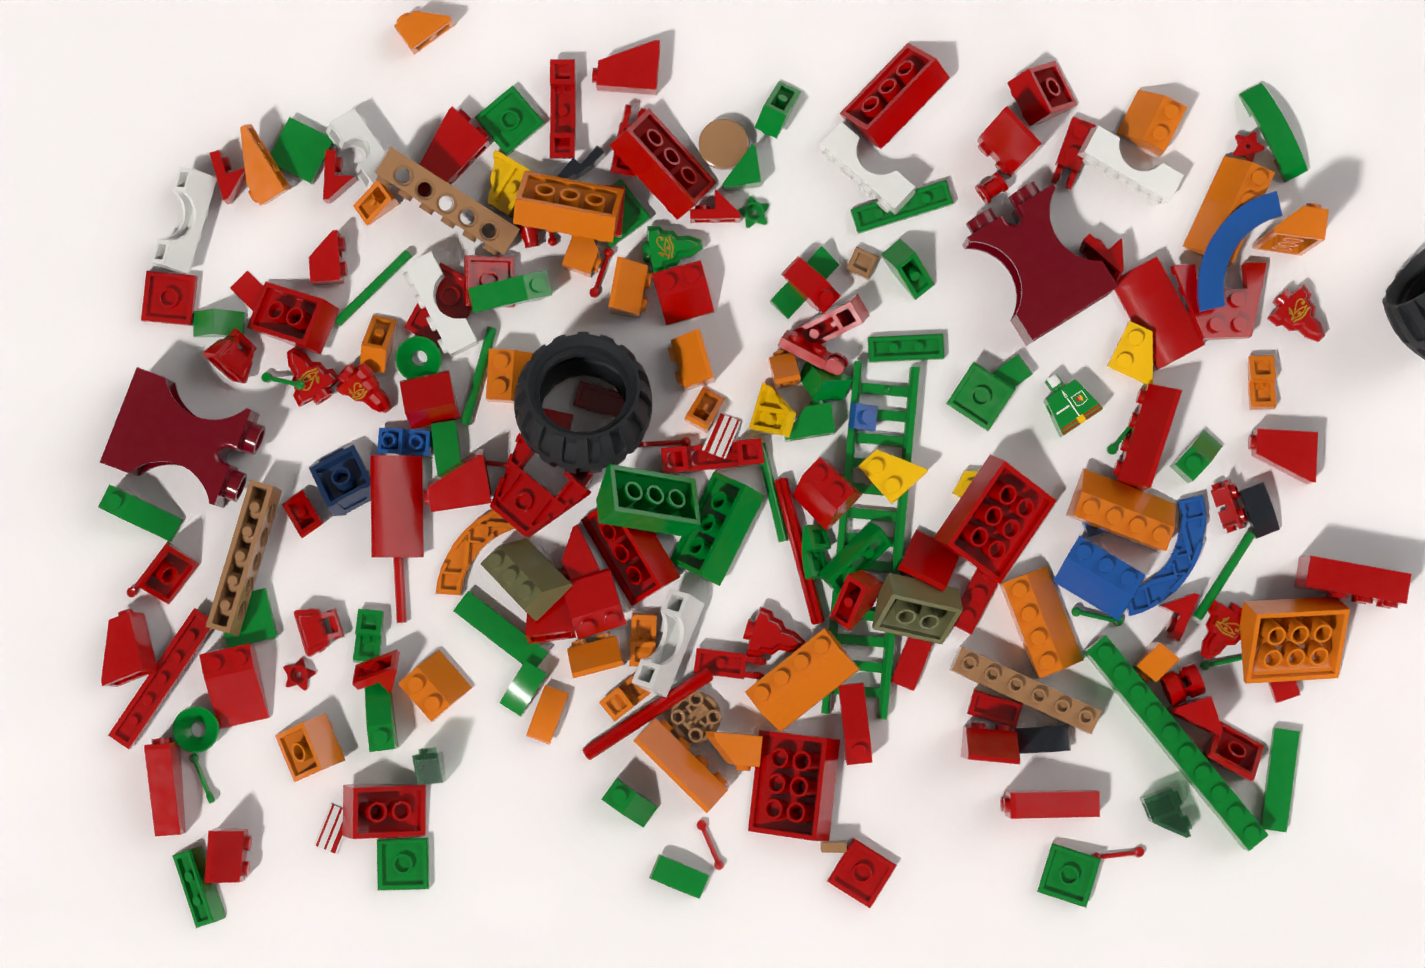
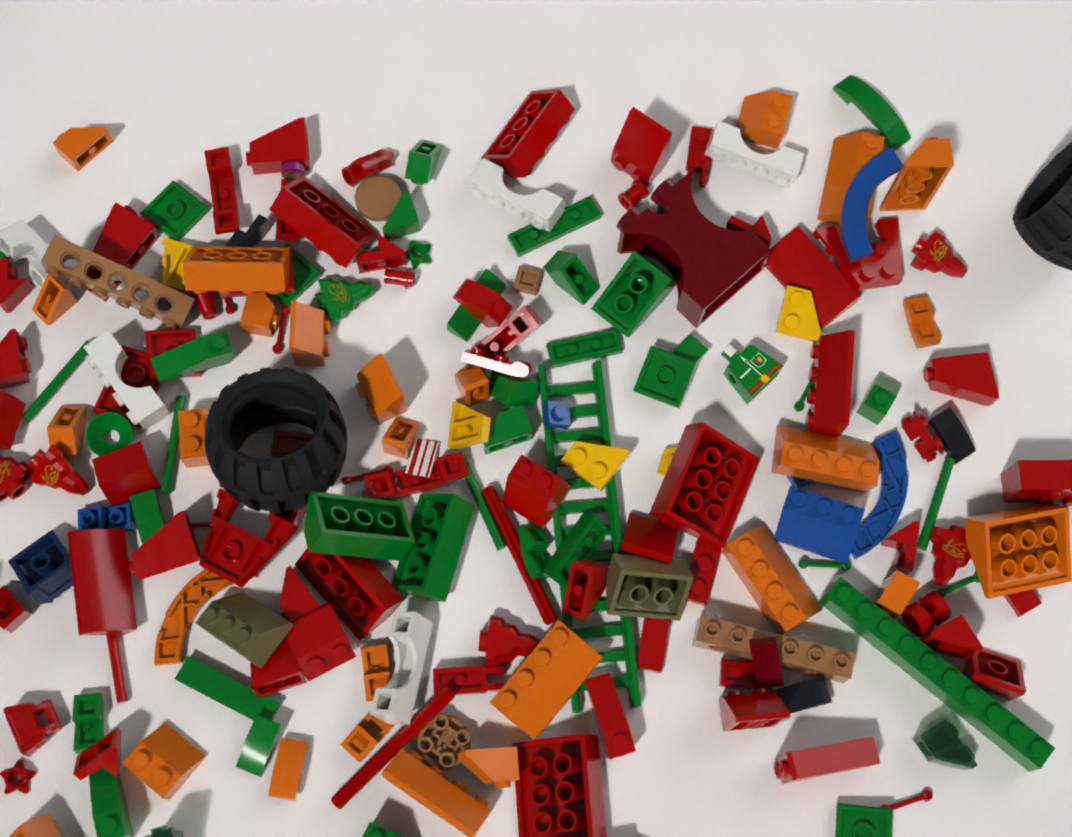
camera: 15 degrees left, 15 degrees down
(594, 656) = (328, 697): orange slope -> none
(638, 96) = (292, 170): none -> magenta tile
(683, 292) = (362, 331): red slope -> none
(717, 107) = (367, 167): none -> red rock
(730, 238) = (402, 278): none -> red pin
(969, 299) = (633, 294): none -> green slope
(1014, 704) = (766, 662): none -> dark red tile
(1041, 93) = (661, 106): red slope -> none
(1251, 140) = (853, 120): red plate -> none
(1279, 779) = (1045, 691): green tile -> none

